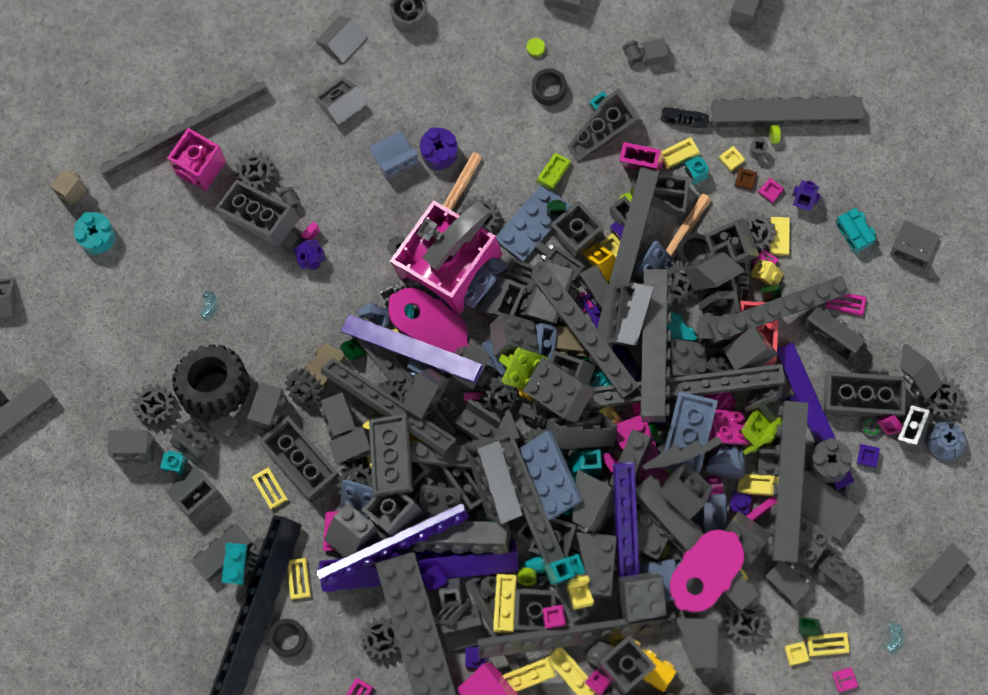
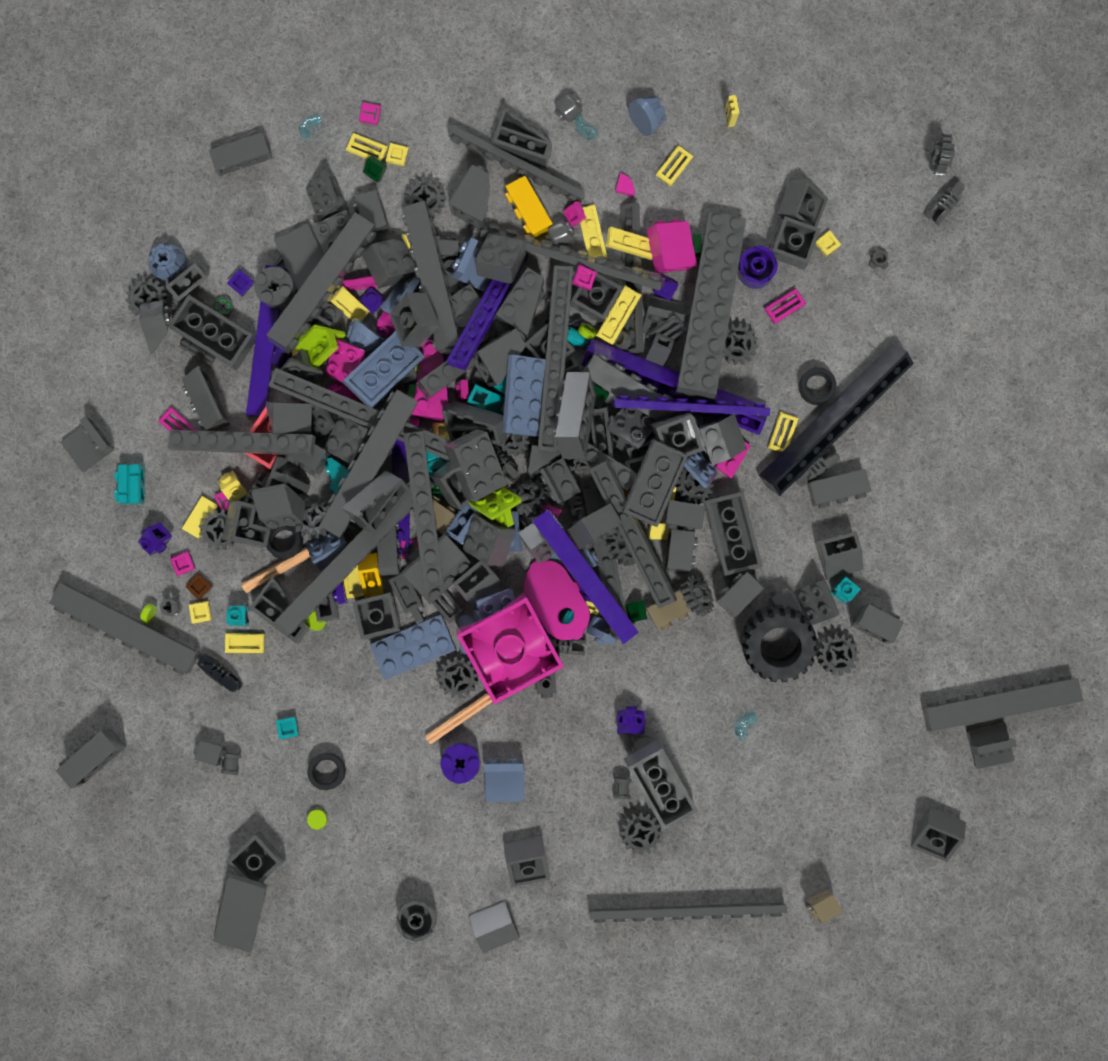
camera: 160 degrees left, 10 degrees up
(86, 236) = (830, 849): teal brick -> none
(196, 159) = (693, 868): dark pink brick -> none
(234, 564) = (836, 465): teal brick -> none
(277, 502) = (762, 525): light yellow tile -> none
(310, 232) = (623, 742): dark pink tile -> none
(429, 230) = (514, 675): dark grey plate -> none
(433, 578) = (669, 365): dark purple plate -> none
(460, 231) = (490, 654): dark grey slope -> none
(553, 171) = (367, 685): lime plate -> none
(556, 207) = (384, 645): dark green plate -> none
(564, 569) = (558, 306): teal brick -> none
(579, 592) = (552, 283): light yellow bracket -> none
(609, 122) = (290, 705): dark grey wedge -> none
(626, 664) = (545, 206): dark grey brick -> none
(635, 156) = (281, 648): dark pink brick -> none
(676, 455) = (406, 353): dark grey slope -> none
(713, 561) = (425, 247): dark pink piece -> none
(771, 293) = (240, 465): dark green plate -> none
(890, 424) = (205, 296): dark pink tile -> none

